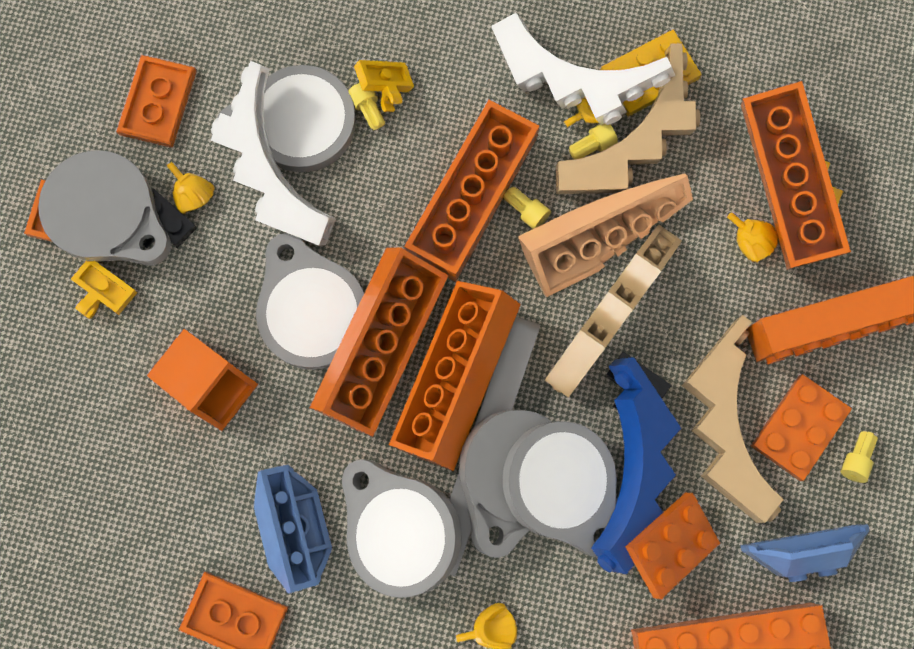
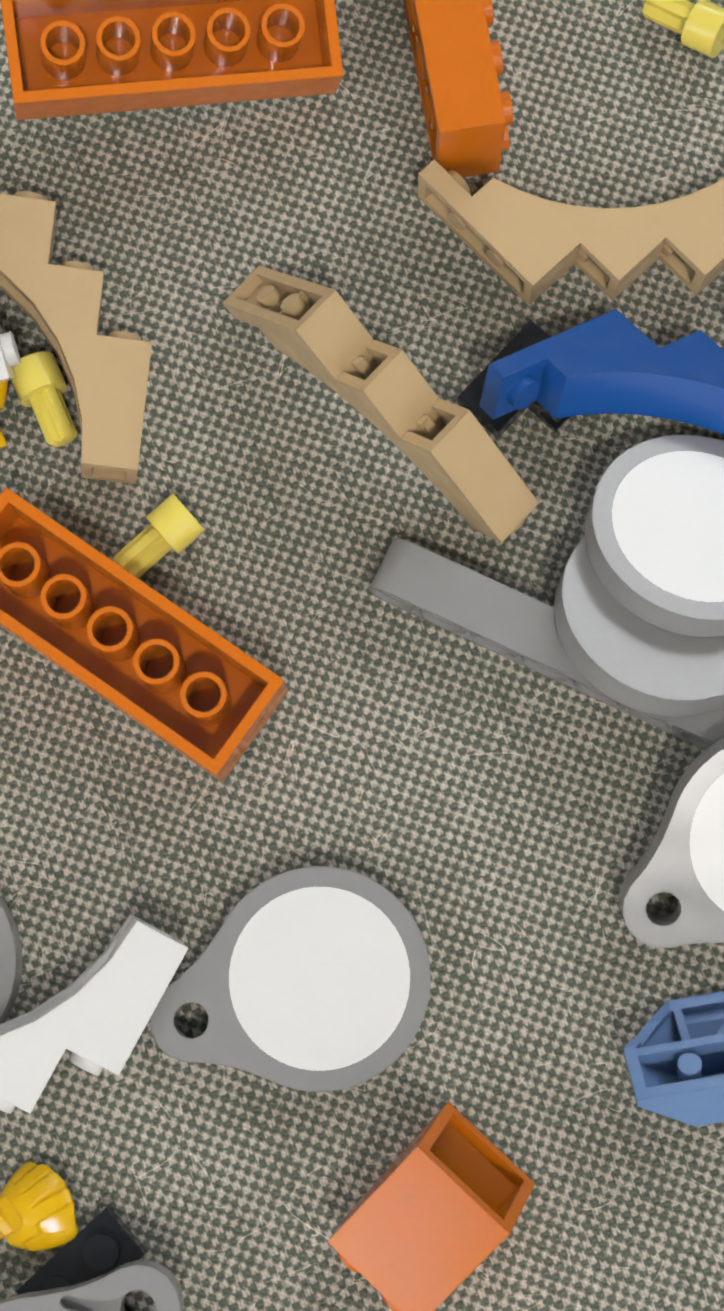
camera: 80 degrees left, 0 degrees up
(379, 341) = (397, 845): orange brick -> none
(455, 374) = (478, 705): orange brick -> none
(592, 234) = (231, 436): light nougat wedge -> none
(755, 237) = (270, 137): yellow piece -> none
(801, 427) = (625, 111): orange plate -> none

